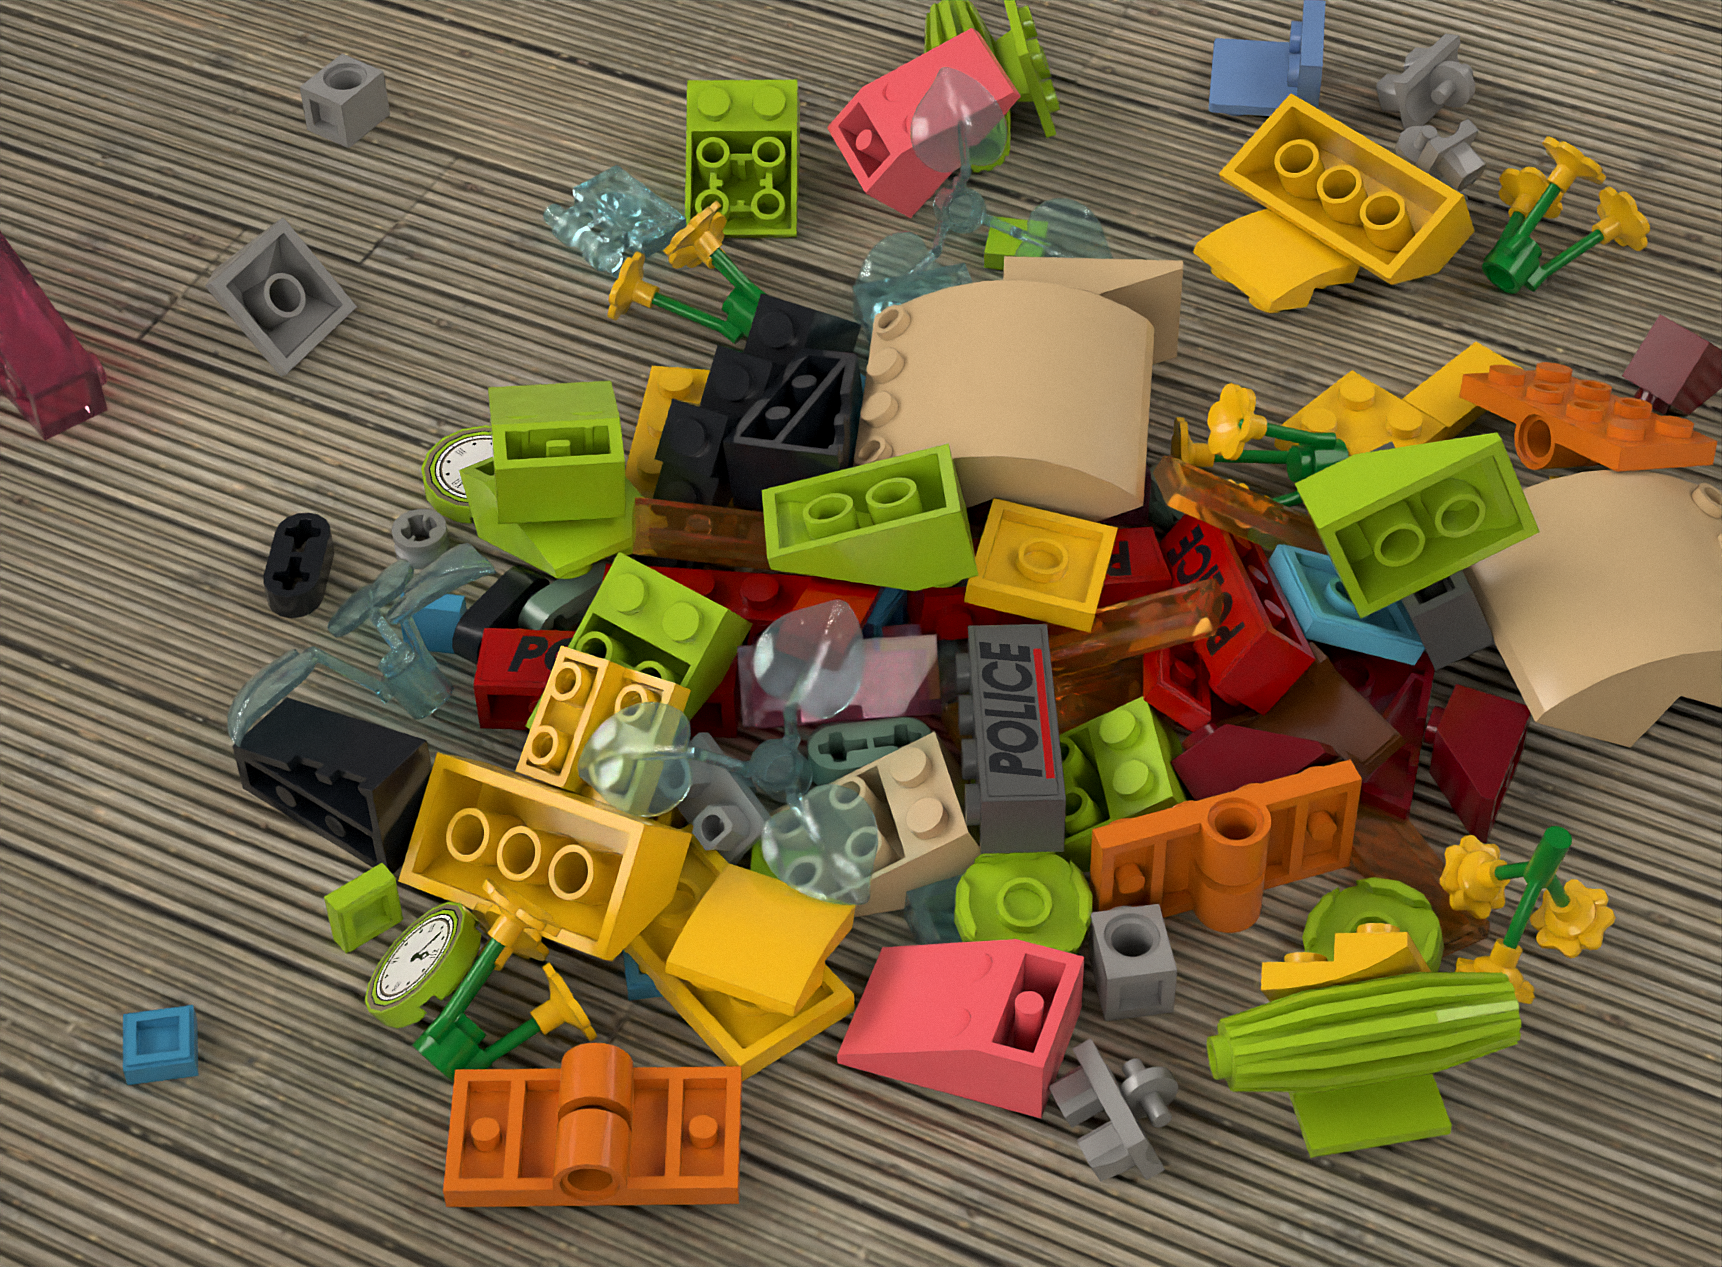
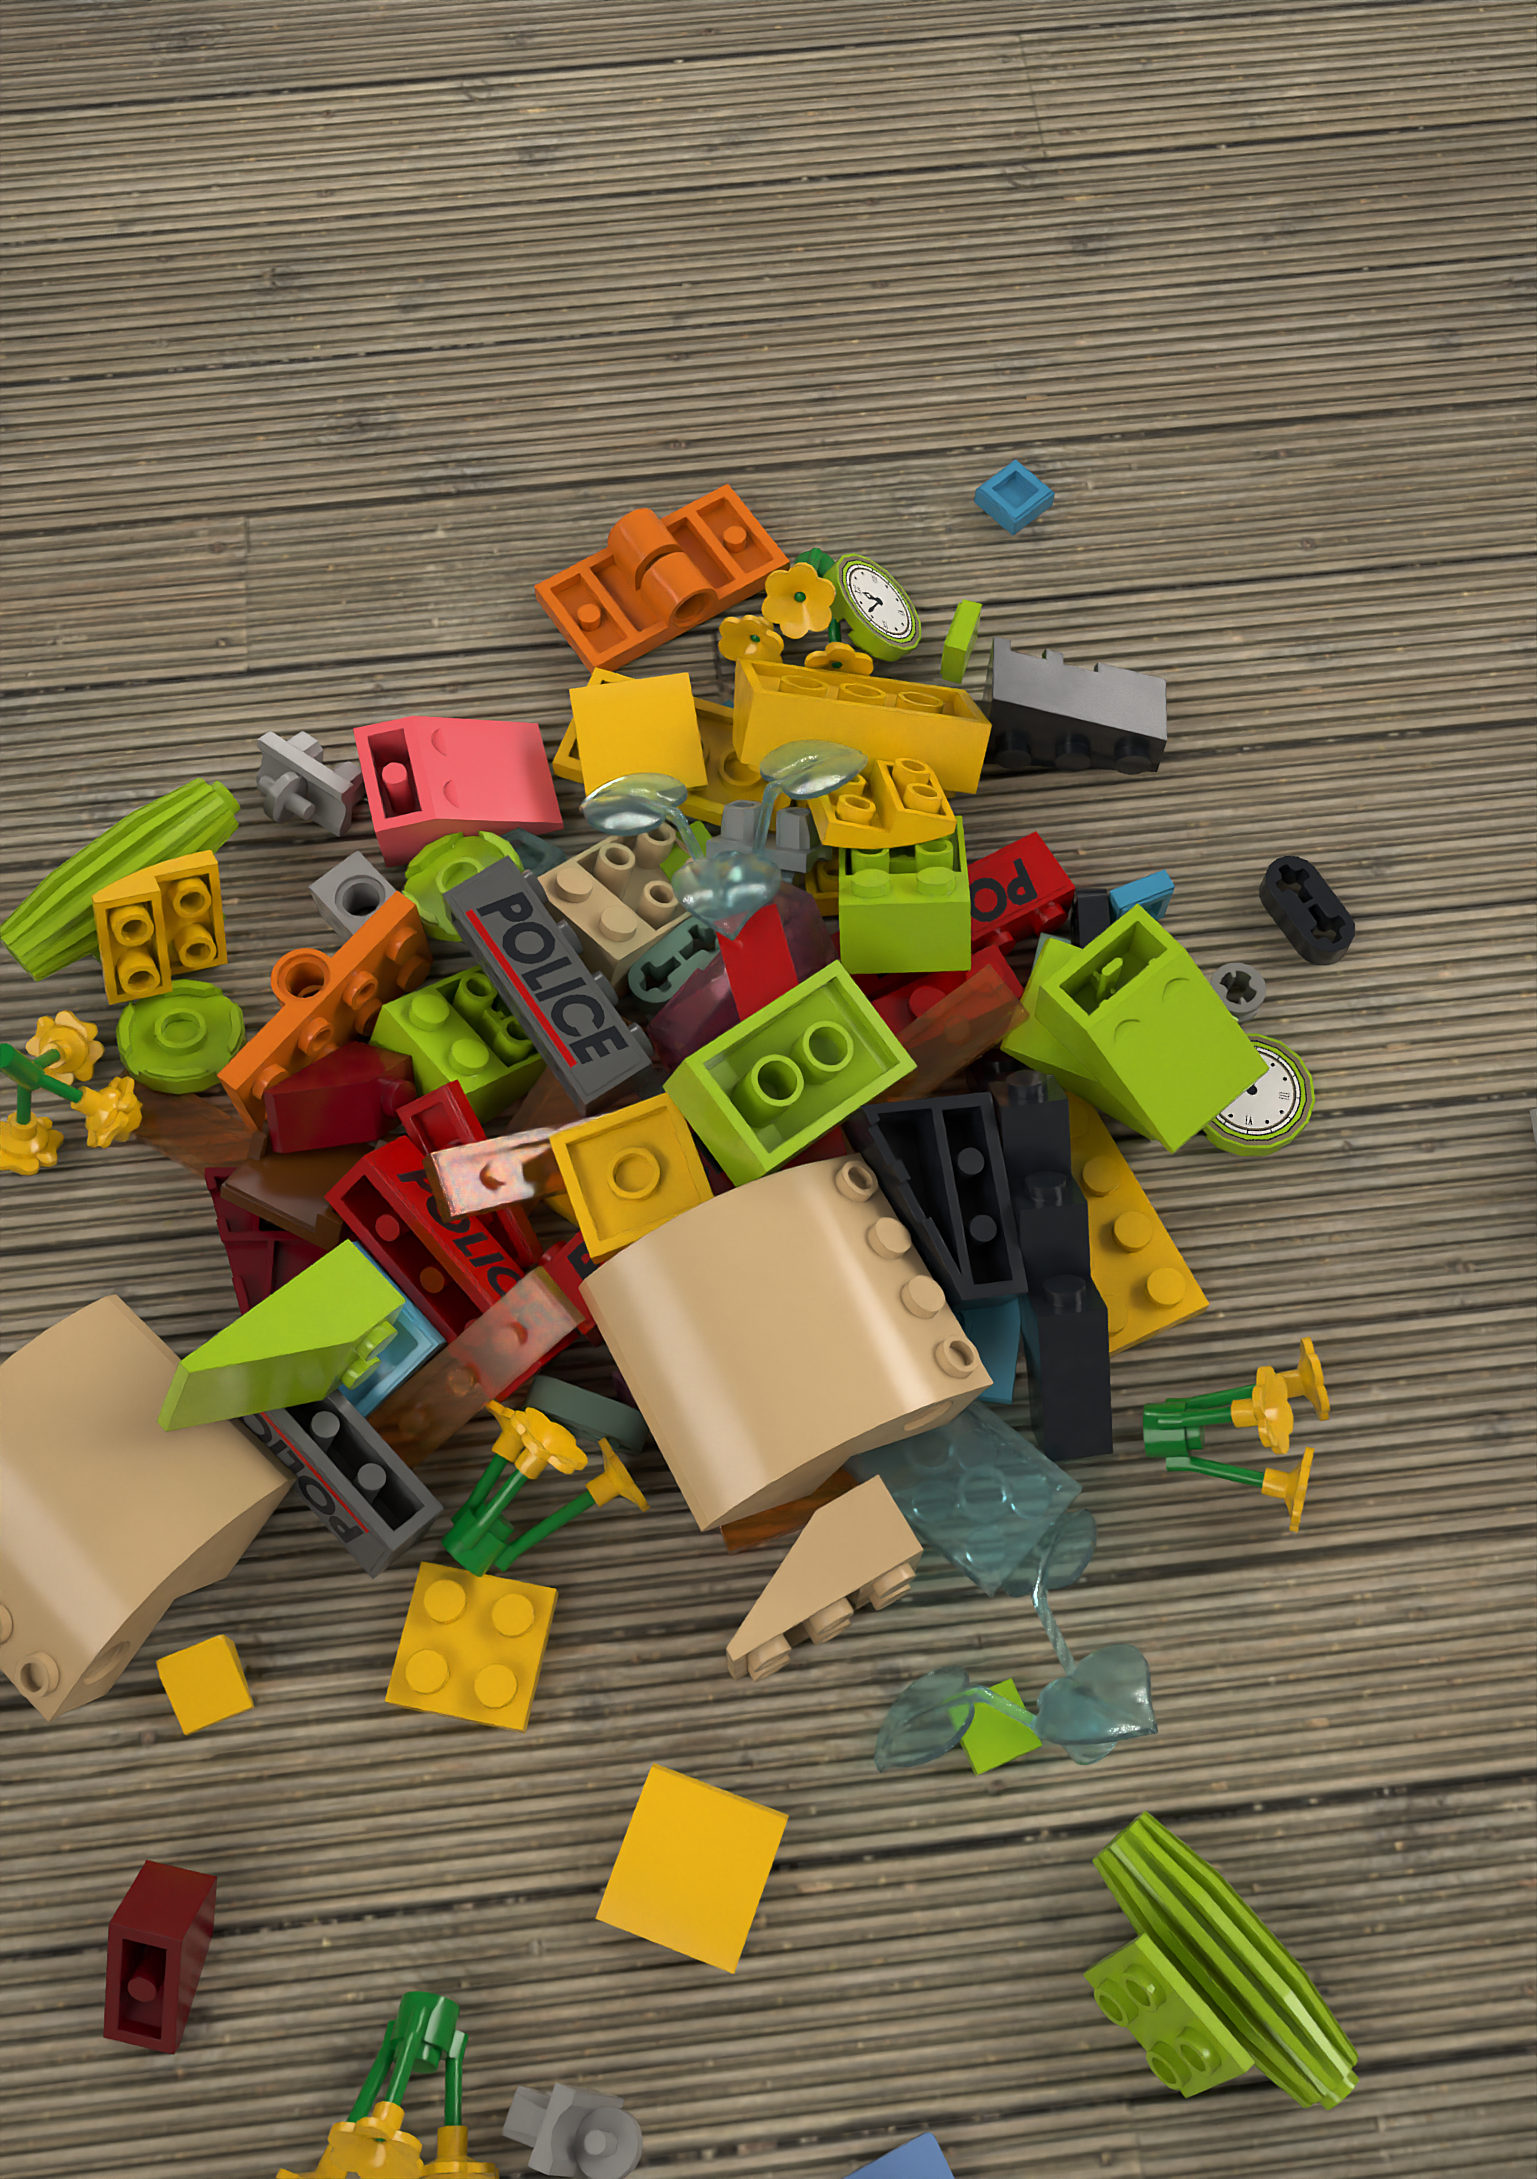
camera: 145 degrees right, 20 degrees up
(407, 671) = (1092, 793): clear light blue plant -> none
(625, 209) = (1409, 1504): clear light blue plate -> none
(744, 154) = (1365, 1661): lime slope -> none
(878, 121) = (1195, 1795): coral slope -> none
(1350, 193) = (660, 2010): yellow slope -> none
(1440, 392) = (396, 1783): yellow tile -> none
(1476, 753) = (170, 1270): dark red slope -> none
(1583, 424) = (215, 1737): orange plate -> none

